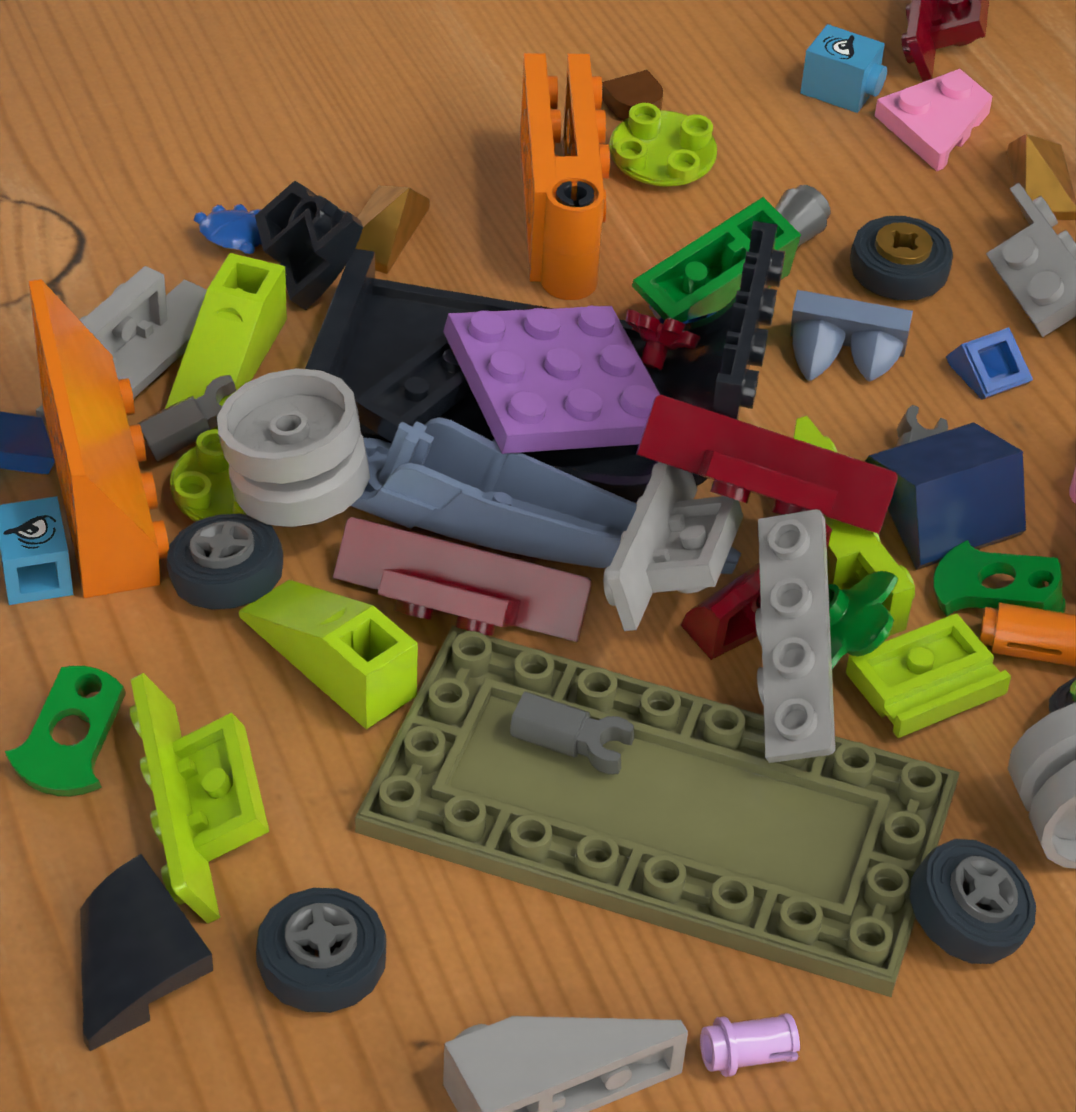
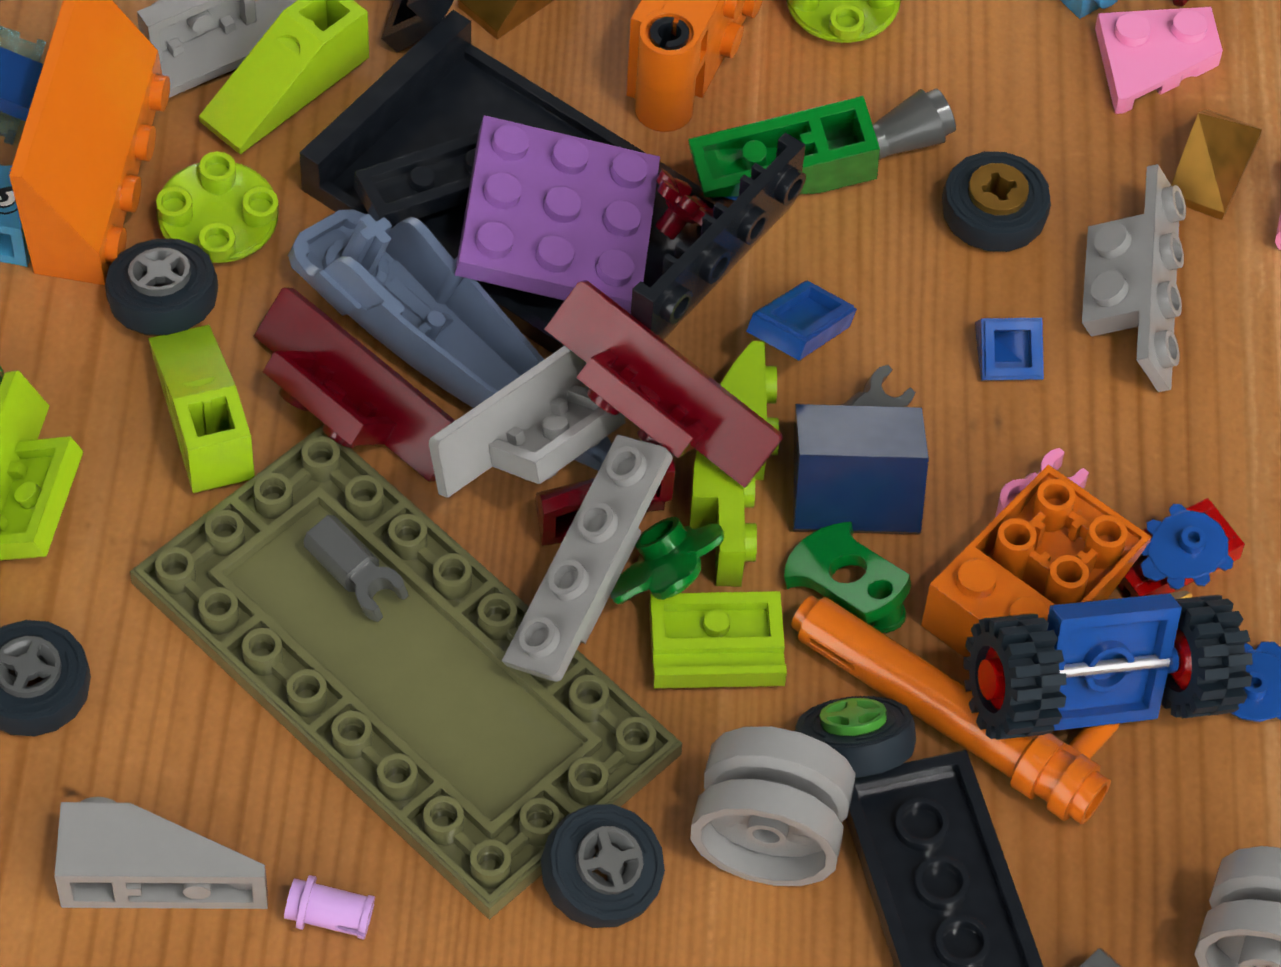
camera: 25 degrees right, 10 degrees up
(186, 420) = (202, 134): dark grey bar -> none
(294, 447) = (259, 203): light grey wheel -> none
(818, 393) = (801, 320): none -> blue tile
(828, 322) = (861, 249): sand blue tile -> none

